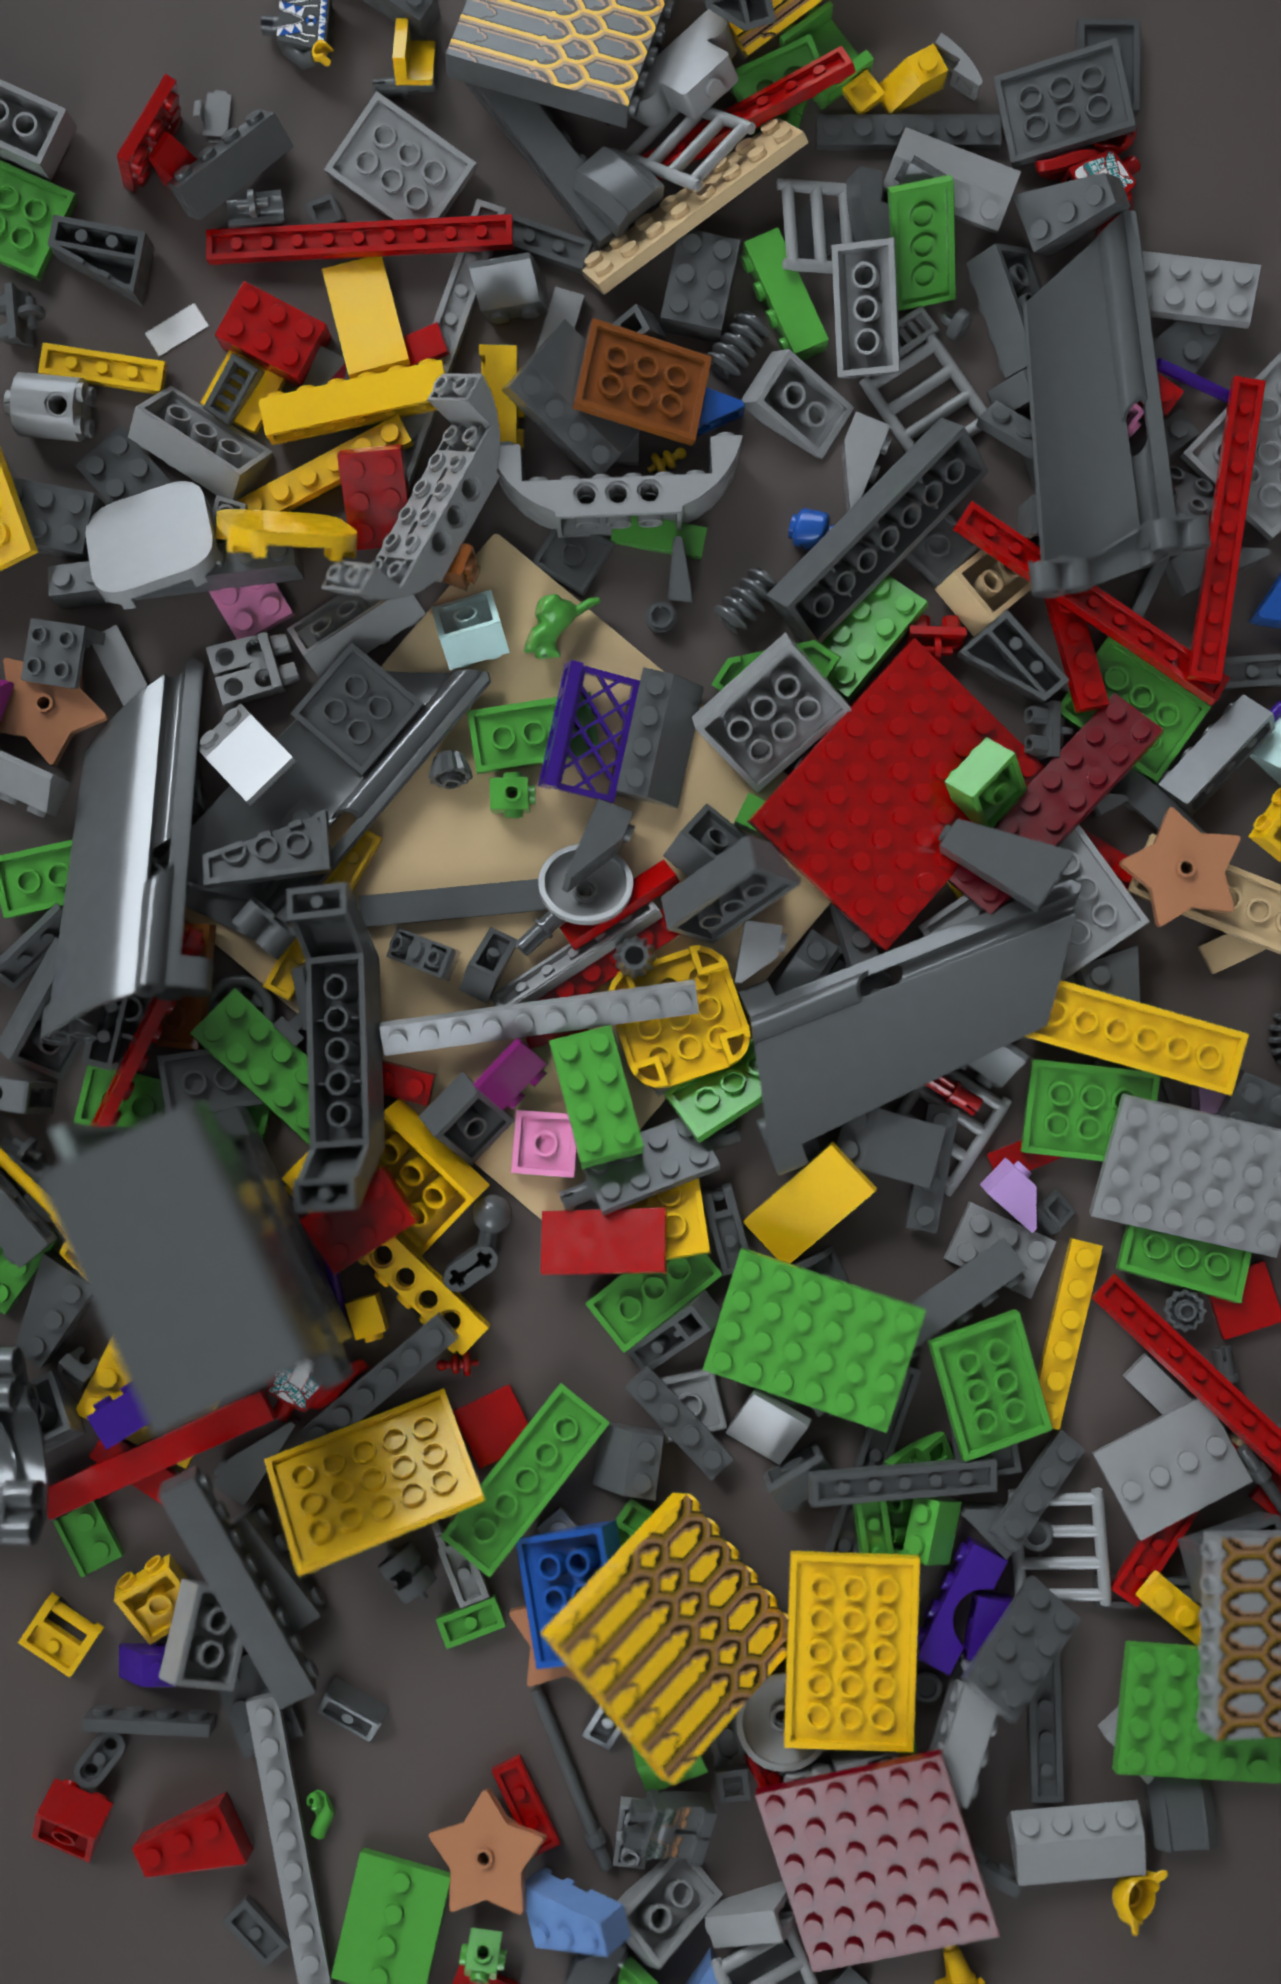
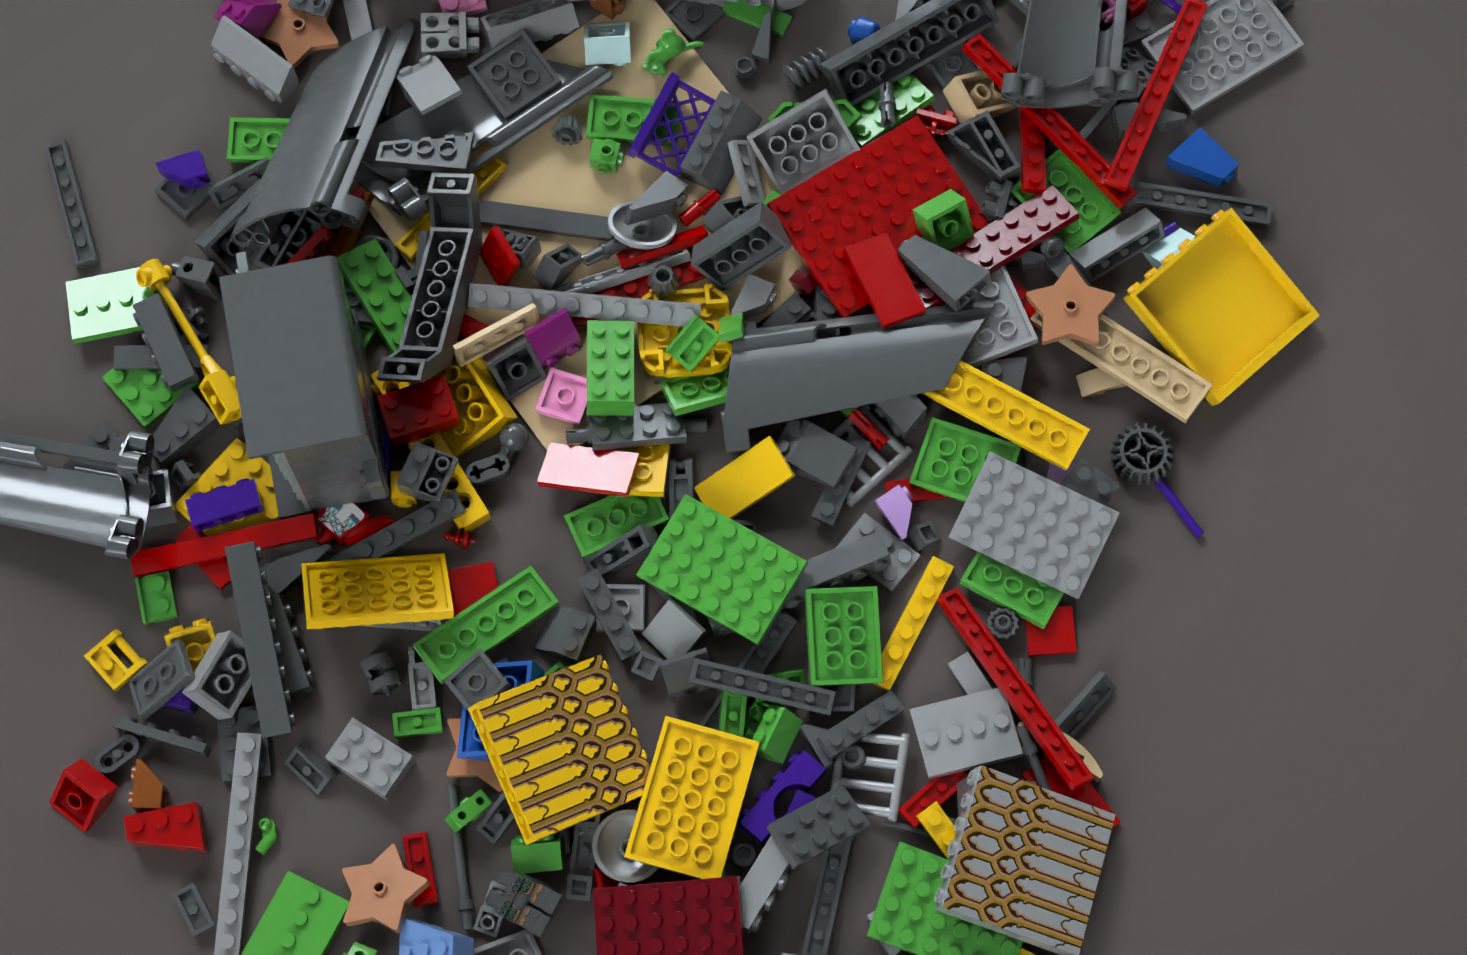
camera: 15 degrees right, 15 degrees down
(127, 1657) = (161, 679): none -> dark grey tile
(153, 1794) = (147, 790): none -> dark orange slope
(395, 1304) = (426, 473): none -> dark grey slope
(408, 977) = (499, 257): none -> red tile
(424, 1687) = (370, 759): none -> light grey brick
(435, 1092) = (496, 334): none -> tan tile
(537, 1569) = (476, 680): none -> dark grey plate
(568, 1728) = (468, 810): none -> bright green piece
(653, 836) = (699, 207): none -> red axle
(698, 1040) = (693, 343): none -> bright green plate
(705, 774) = (746, 172): none -> light grey tile
(744, 1007) = (731, 327): none -> bright green tile
(744, 1479) = (646, 666): none -> dark grey tile
(817, 909) = (802, 282): none -> dark red piece
(870, 632) = (887, 105): none -> dark grey pin
(930, 890) = (884, 280): none -> red tile
(1133, 780) = (1052, 246): none -> dark grey tile

